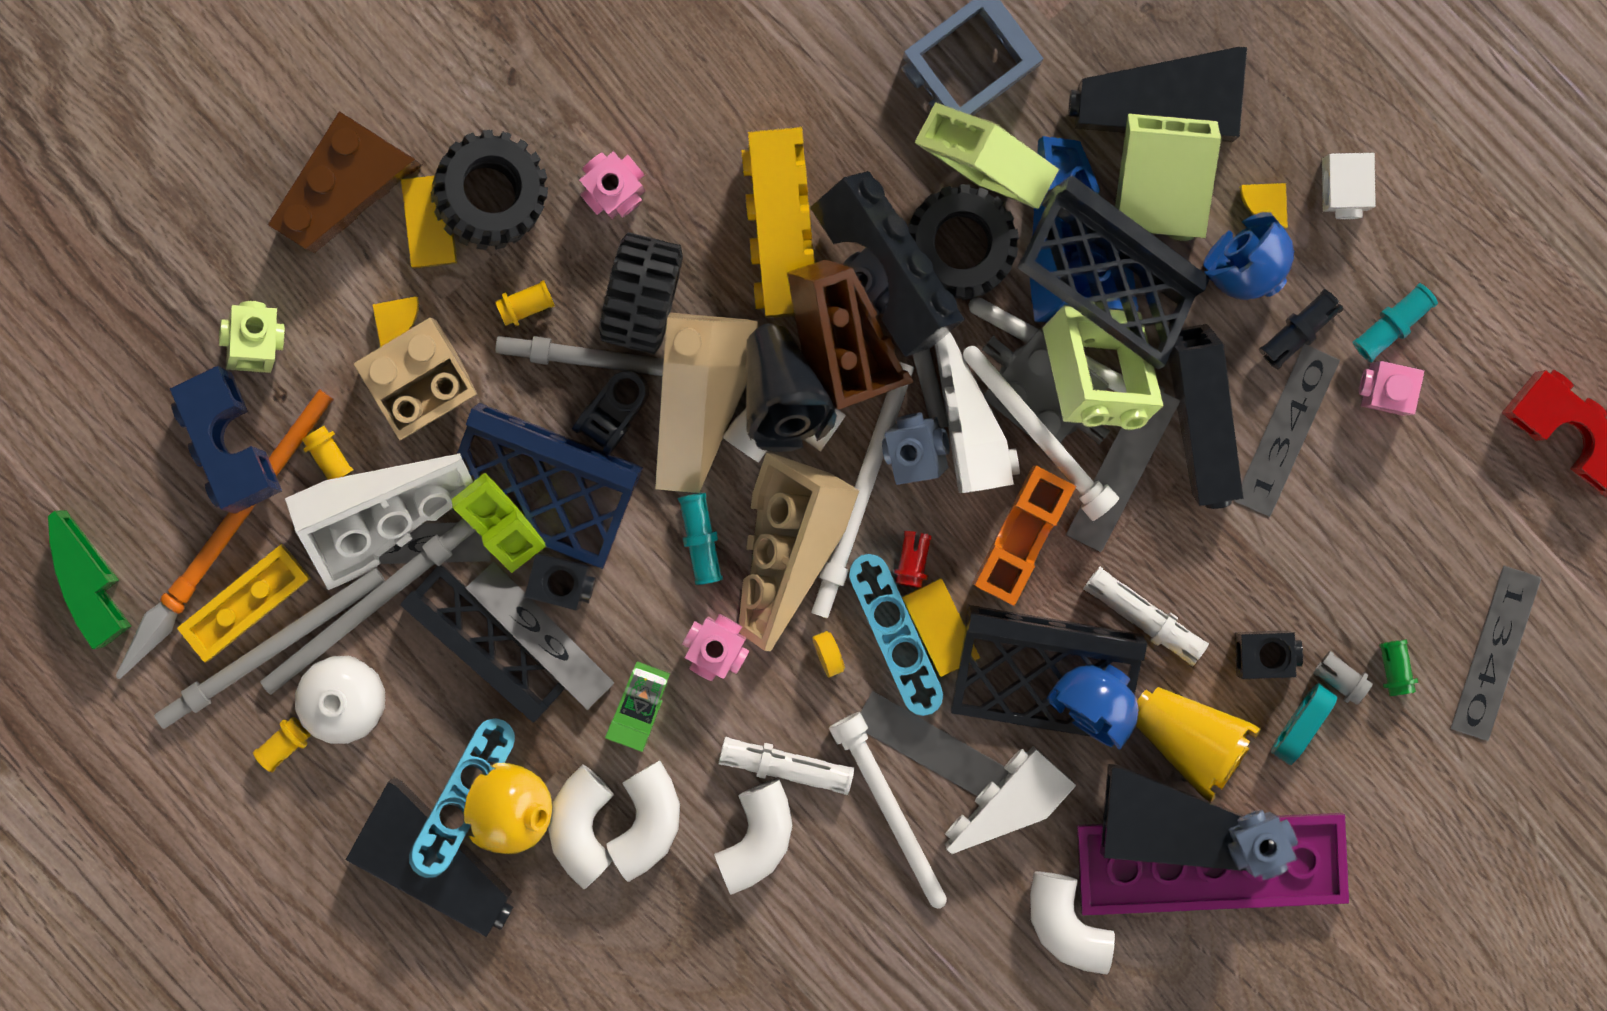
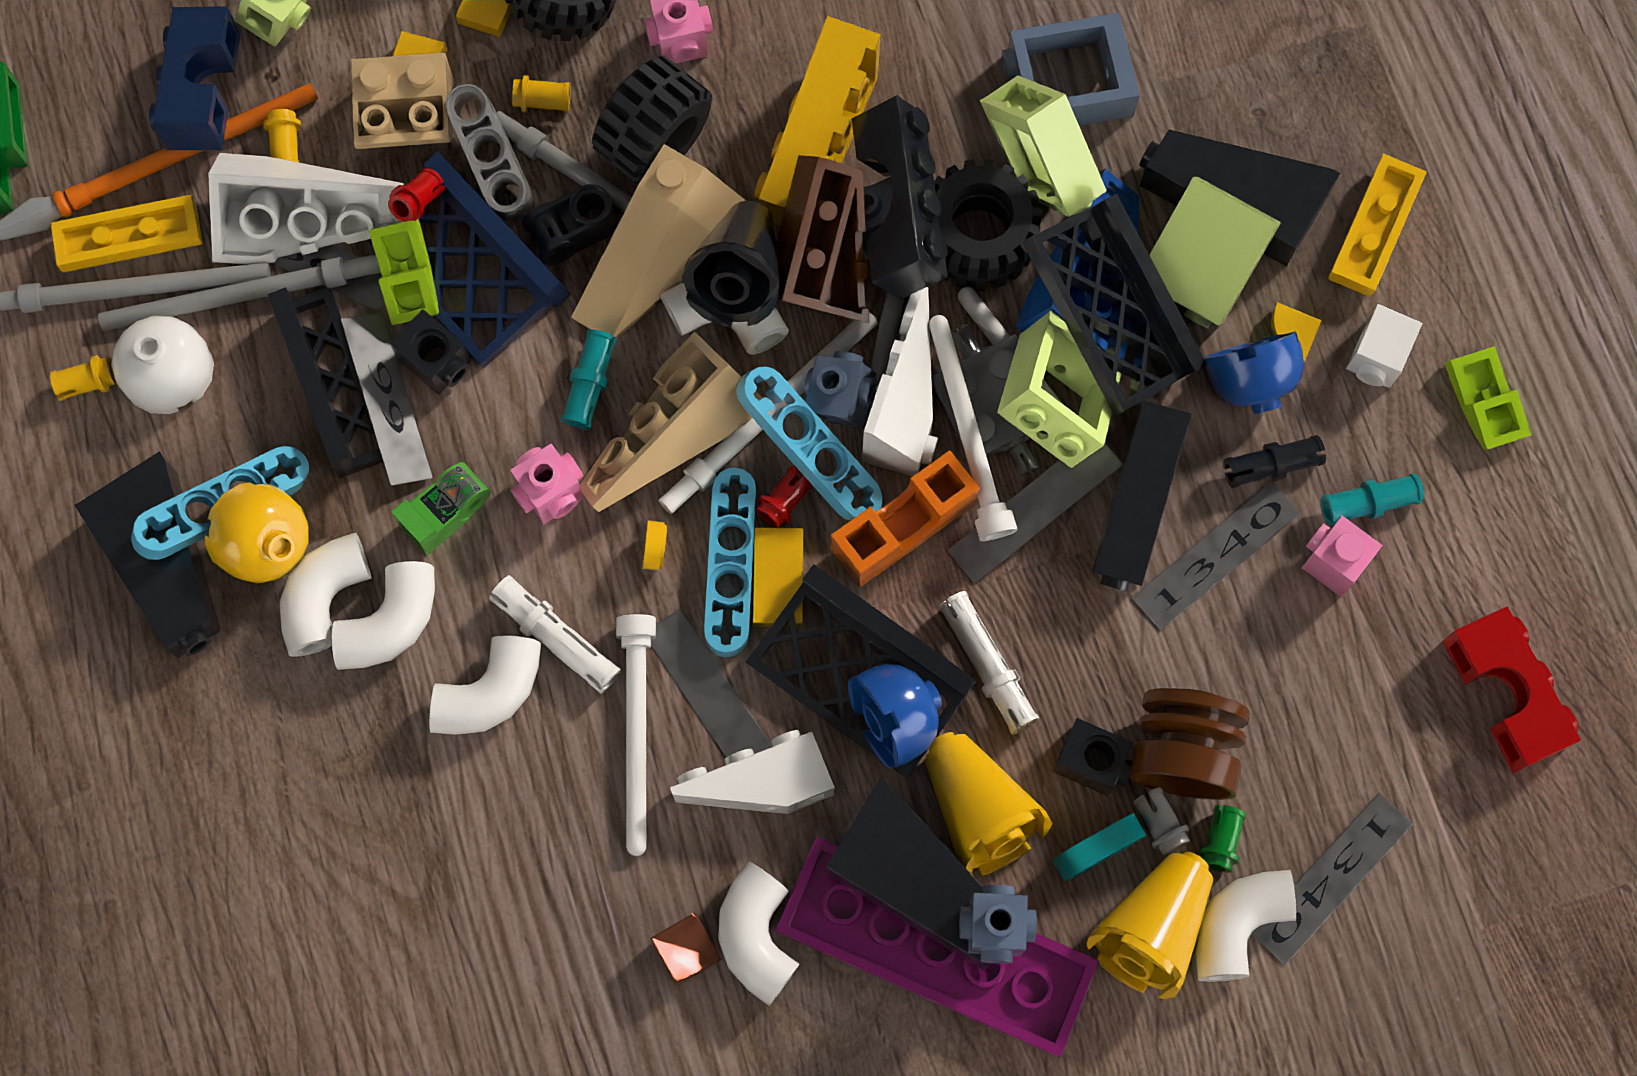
camera: 30 degrees right, 15 degrees down
(476, 469) = (409, 200): none -> red pin
(522, 404) = (473, 136): none -> light grey beam
(916, 511) = (815, 437): none -> medium azure beam
(1018, 962) = (686, 949): none -> copper slope
(1295, 71) = (1377, 225): none -> yellow plate
(1341, 612) = (1190, 734): none -> reddish brown wheel
(1378, 764) = (1156, 926): none -> yellow cone
(1433, 728) = (1233, 917): none -> white cylinder
(1453, 184) = (1485, 399): none -> lime slope

